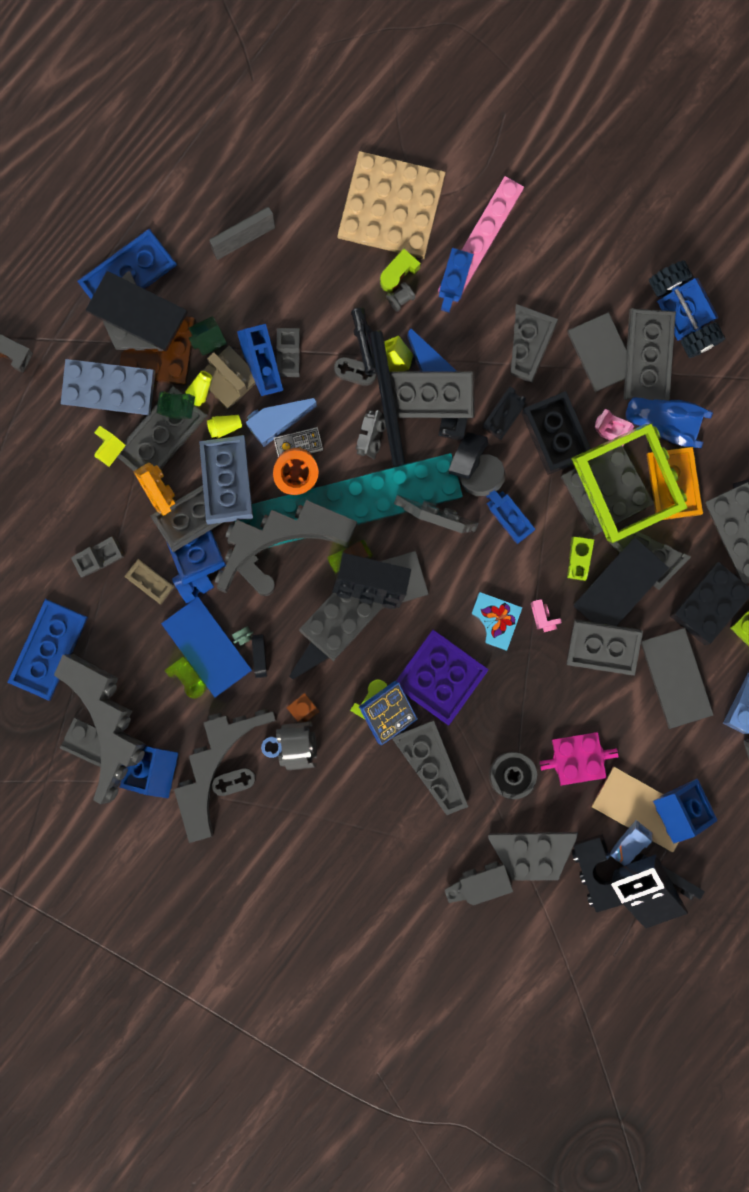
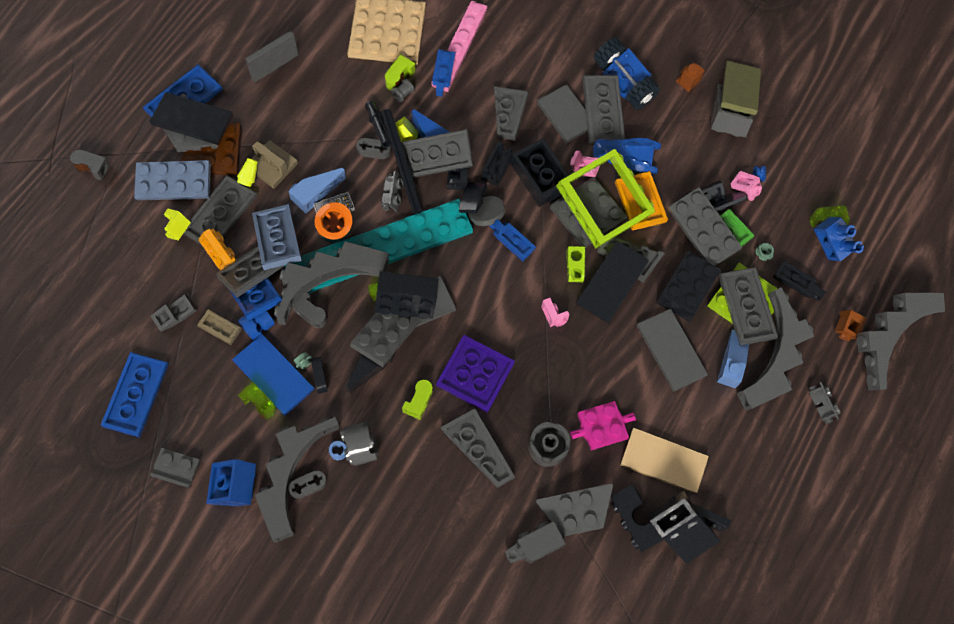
camera: 10 degrees left, 15 degrees down
(110, 718) = (193, 443): dark grey arch -> none
(175, 405) = (229, 186): clear green bracket -> none
(206, 336) = (250, 133): clear green brick -> none
(223, 425) = (271, 198): neon yellow cone -> none
(260, 358) = (295, 143): blue slope -> none
(288, 351) = (318, 140): dark grey slope -> none
(303, 709) = (361, 411): dark orange brick -> none
(388, 713) = (434, 406): black tile -> none
(429, 513) = (449, 240): dark grey wing -> none
(498, 619) = (516, 321): medium azure tile -> none
(604, 647) = (607, 331): dark grey tile -> none
(631, 843) = (660, 489): medium blue leg -> none
(685, 811) = (700, 454): blue slope -> none

